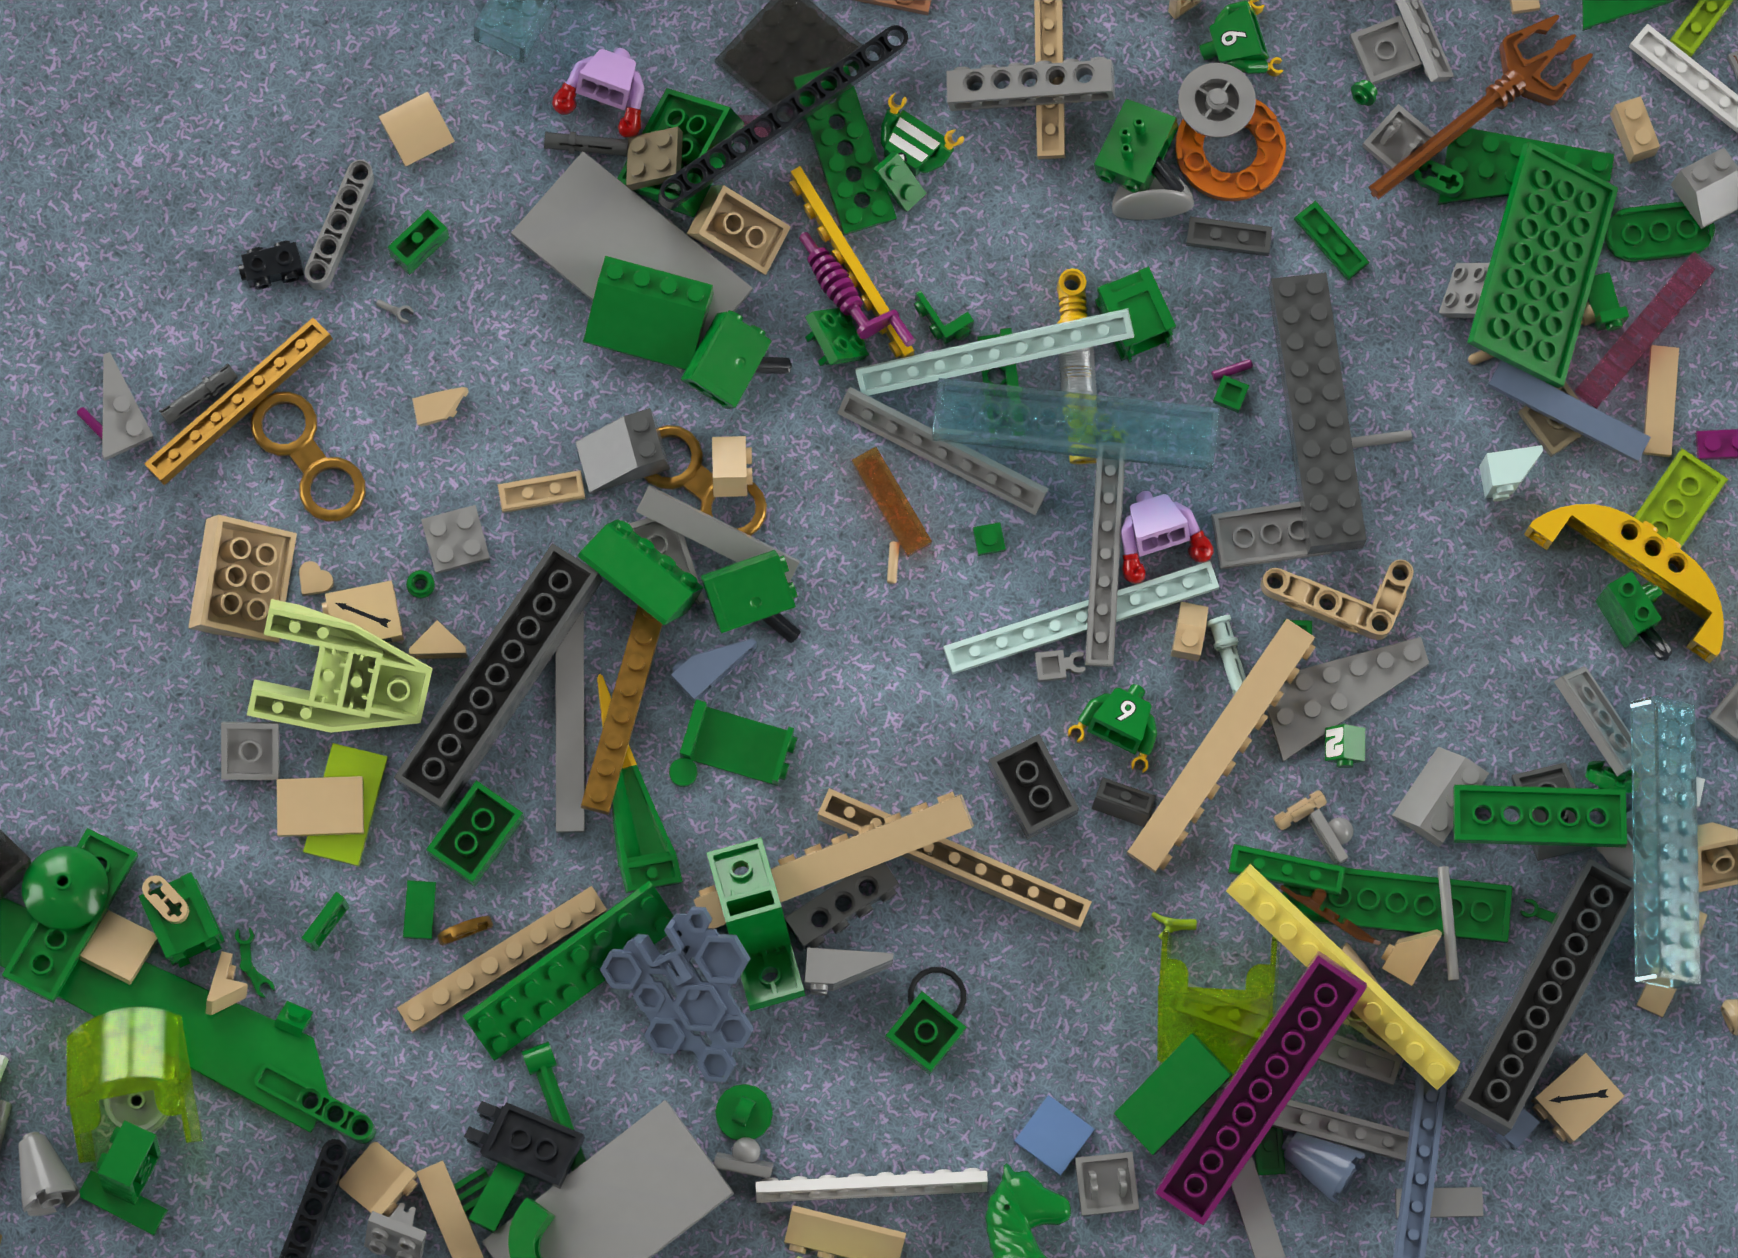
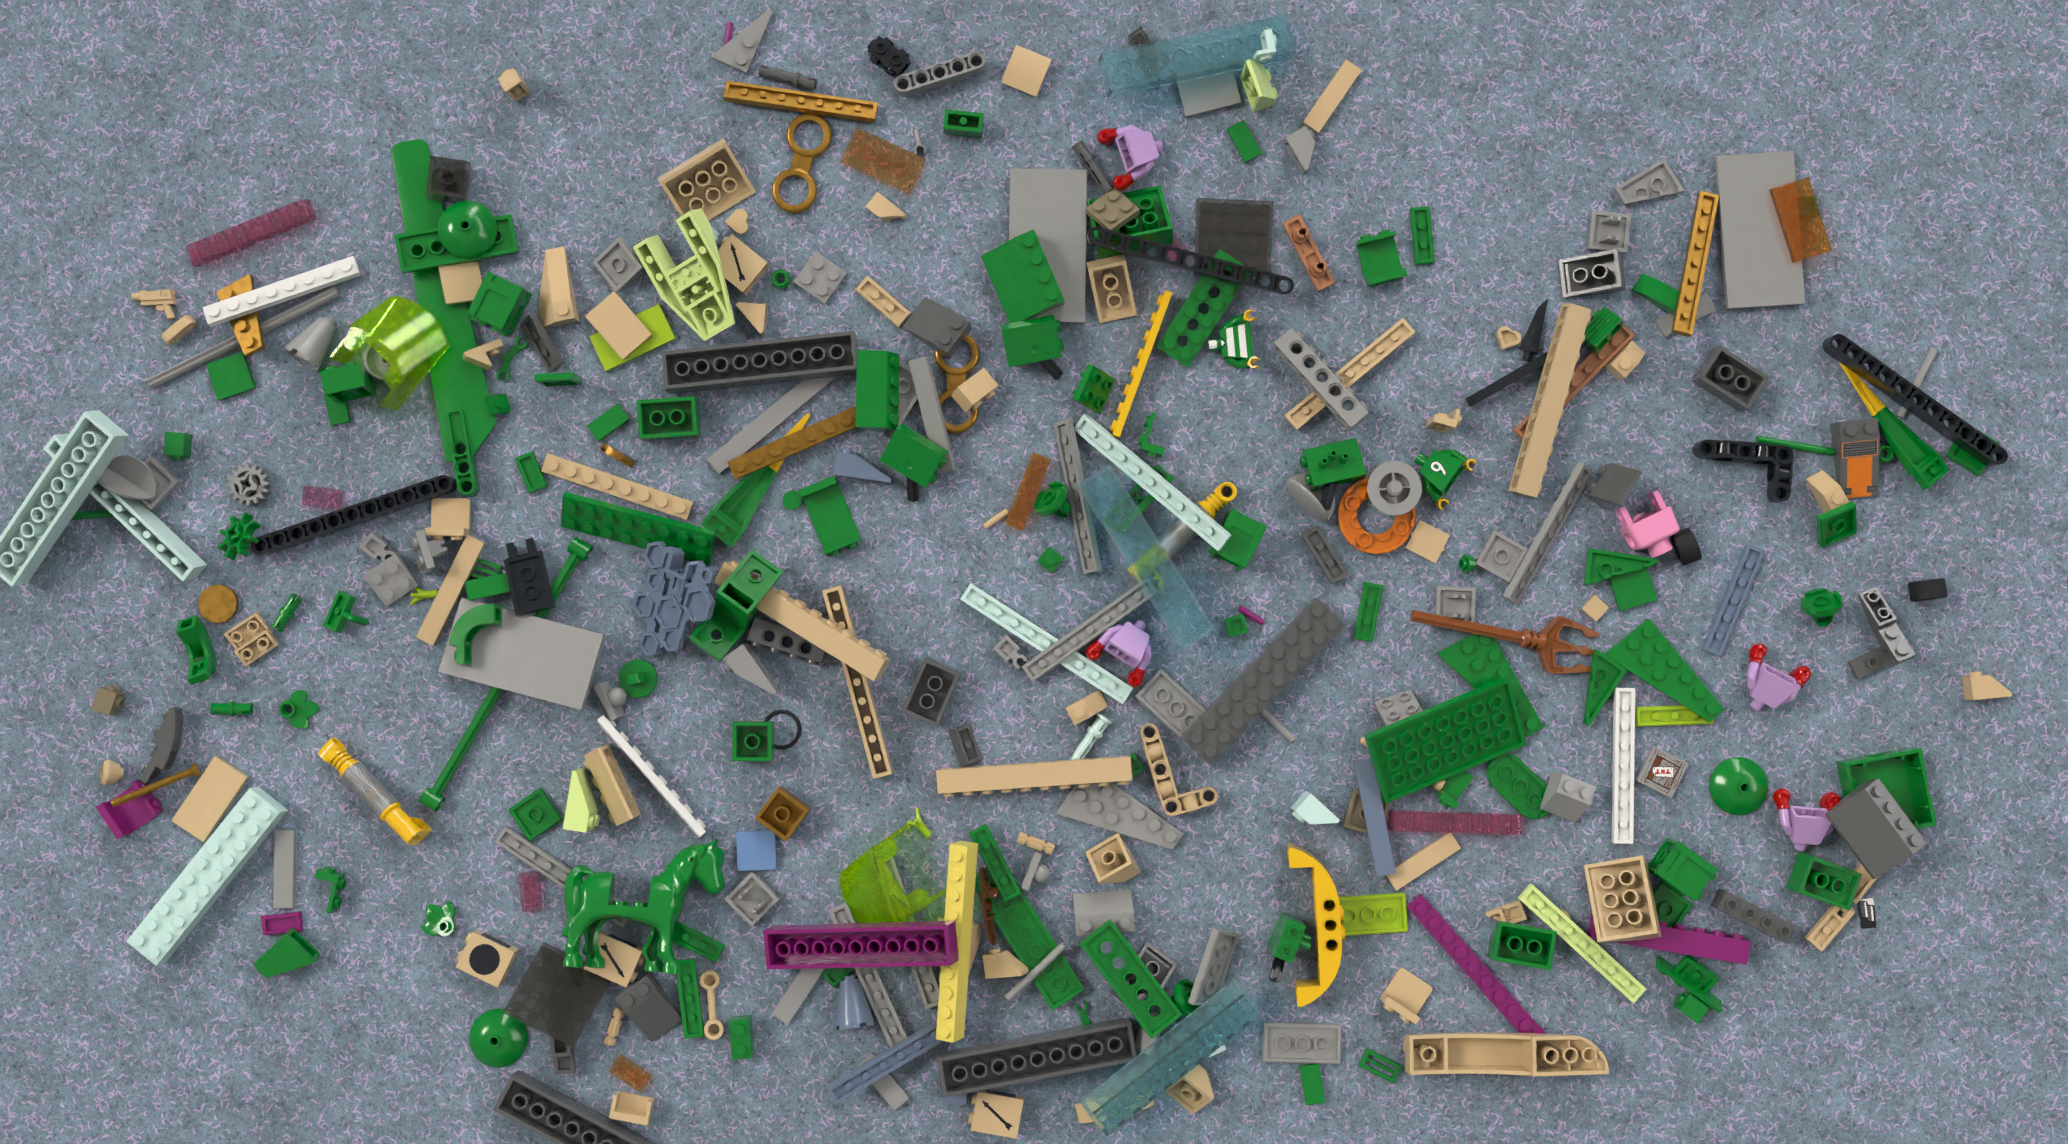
camera: 60 degrees right, 10 degrees up
(160, 904) = (491, 286): tan beam -> none
(221, 850) = (556, 297): none -> tan wedge
(265, 910) = (542, 342): none -> dark grey plate
(382, 365) = (883, 161): none -> clear orange tile
(403, 1045) = (531, 472): none -> green tile
(841, 291) = (1119, 375): magenta piece -> none
(900, 181) = (1208, 353): green plate -> none
(925, 480) = (1053, 501): none -> green tile
(1036, 1065) = (783, 813): none -> pearl gold brick
(1121, 720) = (1005, 710): green torso -> none
(1173, 1093) = (825, 898): green tile -> none
(1304, 116) = (1427, 541): none -> tan piece
(1345, 745) = (1089, 840): brick -> none
(1392, 737) = (1112, 861): none -> tan slope
(1436, 184) = (1446, 644): green beam -> none
(1611, 50) = (1603, 679): none -> green wing
(1635, 130) = (1567, 728): tan brick -> none

